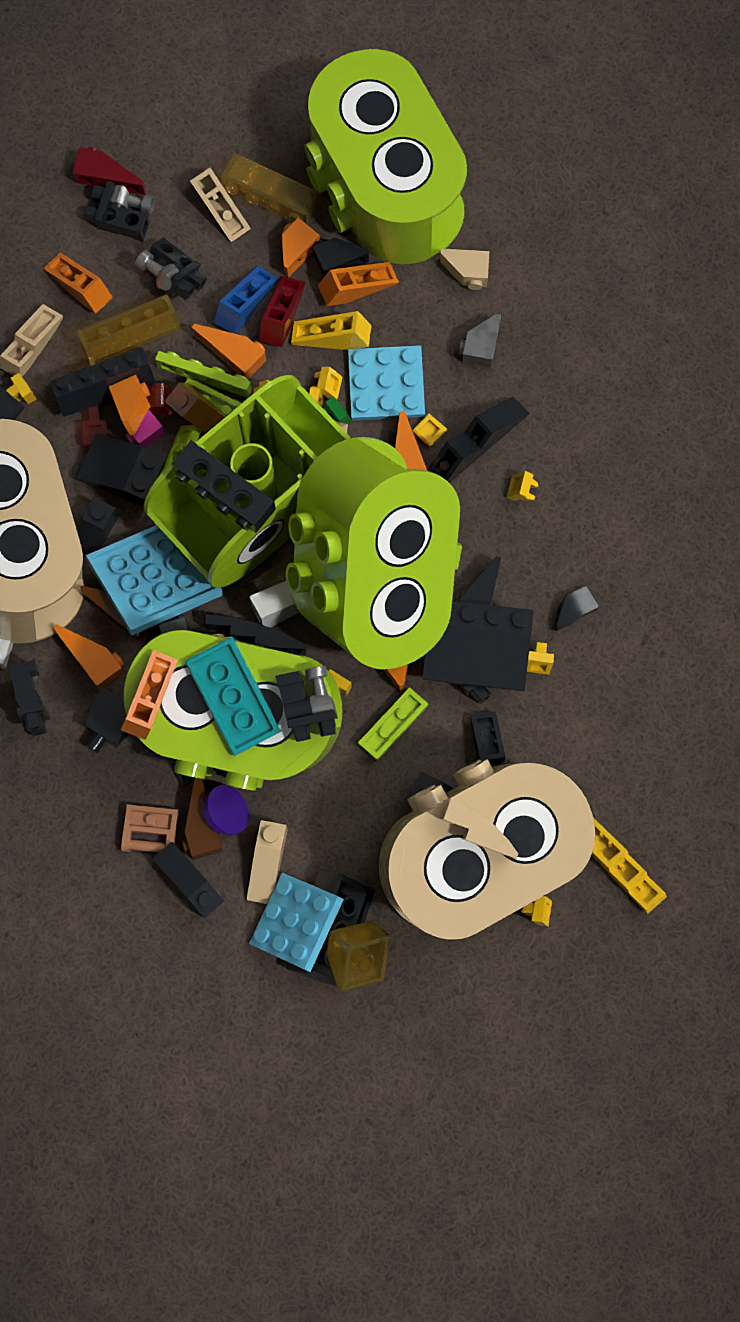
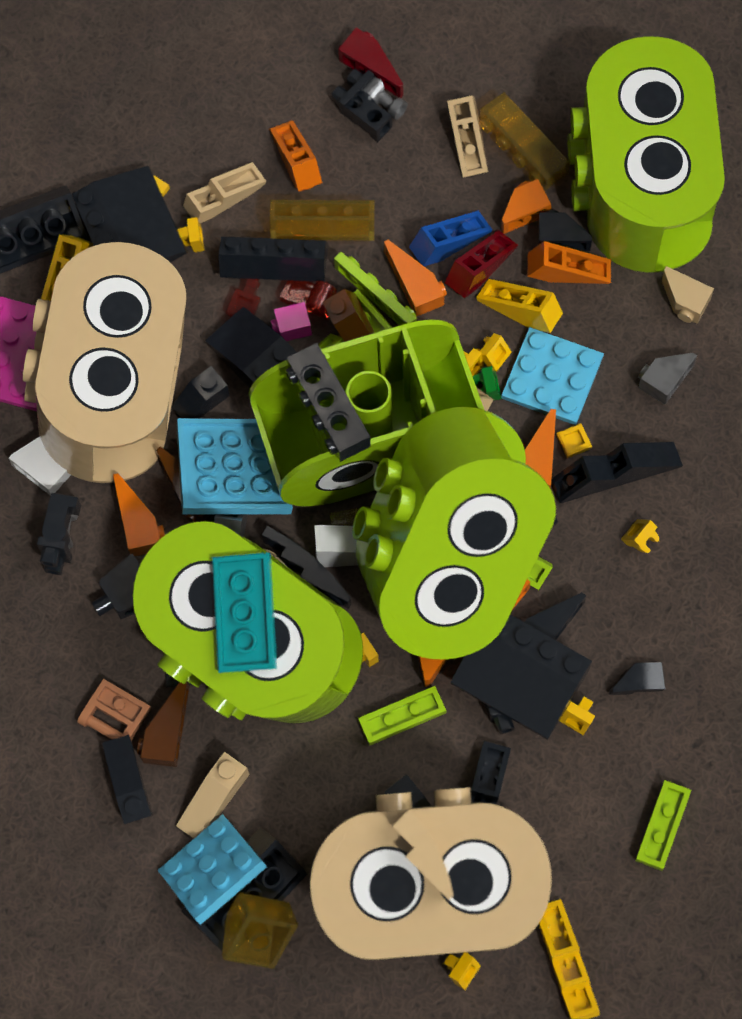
camera: 25 degrees right, 5 degrees down
(131, 402) = (290, 289): orange slope -> none
(149, 695) = (162, 575): orange slope -> none
(173, 269) = (391, 179): black hips -> none
(225, 810) = (195, 727): dark purple tile -> none
(304, 709) = (308, 657): black hips -> none
(648, 719) = (663, 825): none -> lime plate

